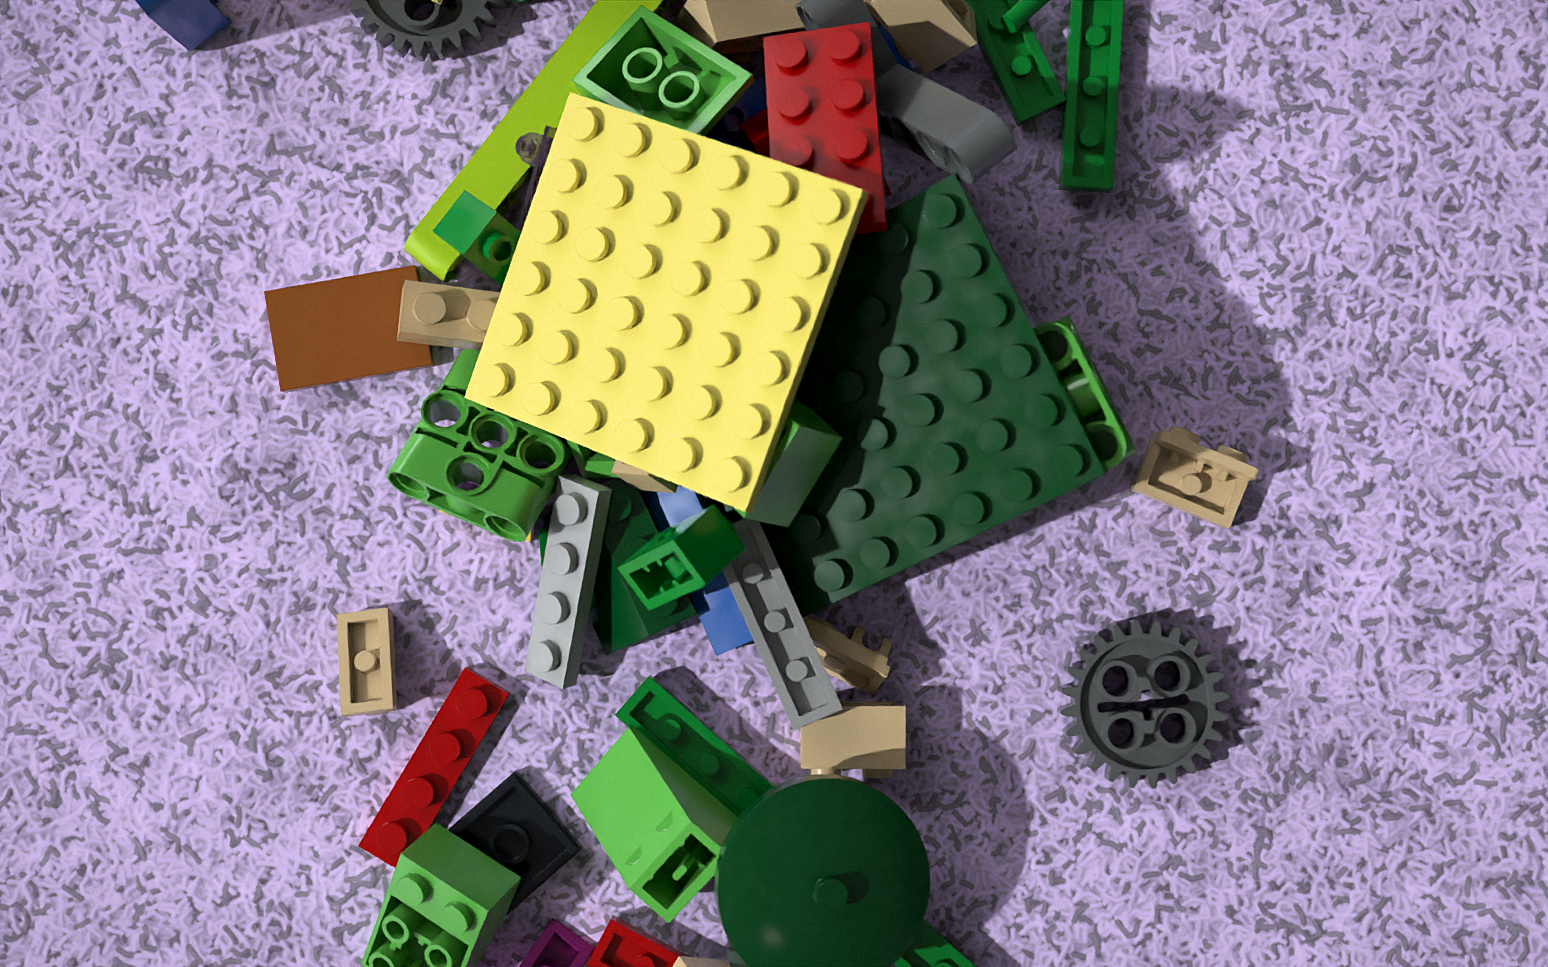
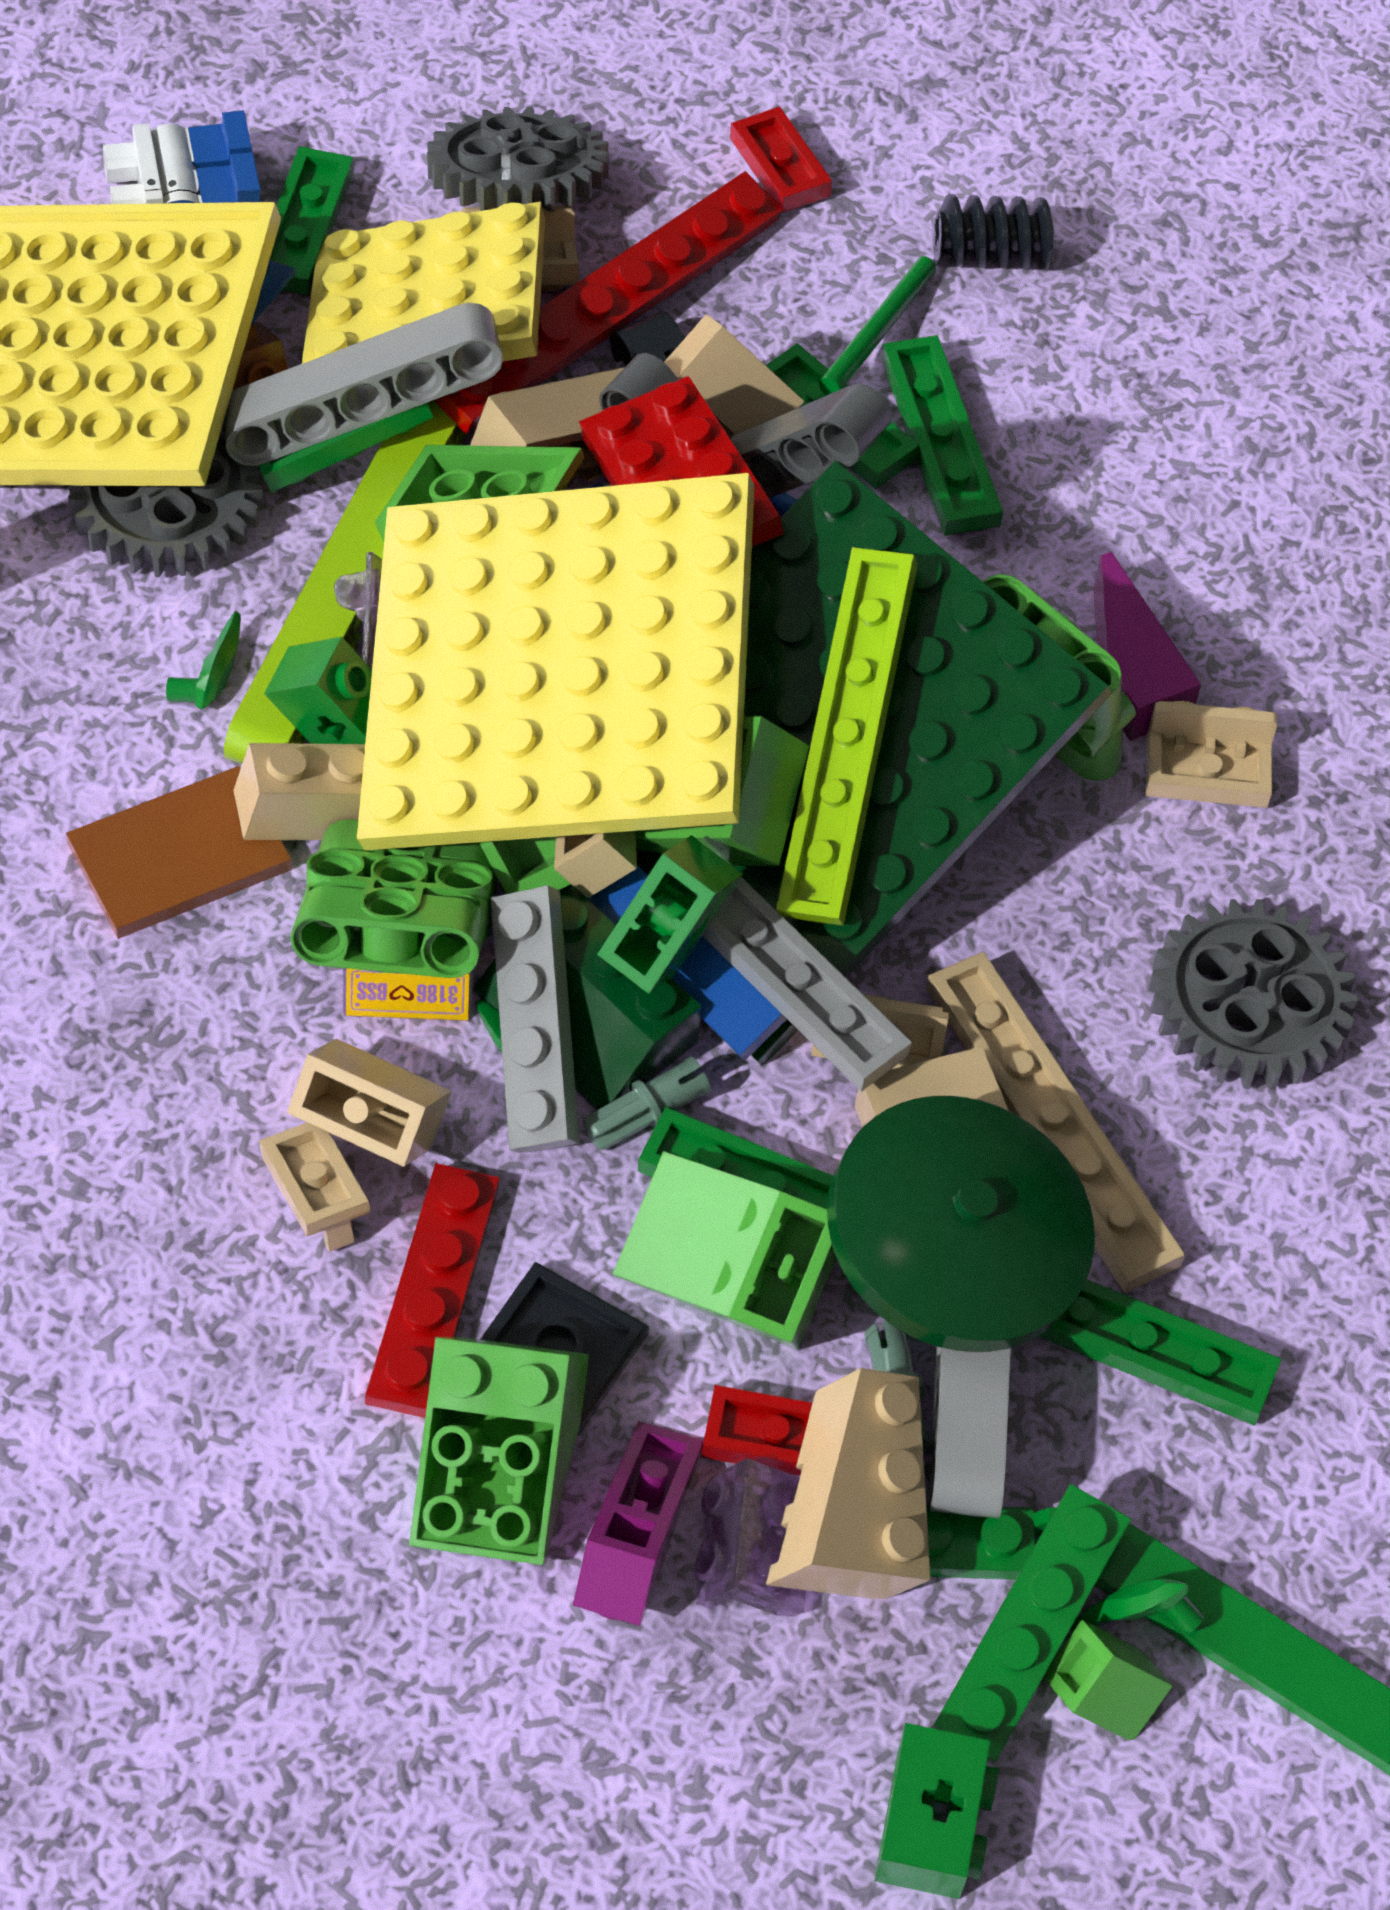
camera: 25 degrees left, 30 degrees down
(421, 165) = (214, 671): none -> green bar
(423, 612) = (369, 1102): none -> tan brick
(638, 663) = (645, 1104): none -> sand green axle
(879, 434) = (847, 736): none -> lime plate
(944, 767) = (1035, 1088): none -> tan plate
(1168, 371) = (1134, 637): none -> magenta slope

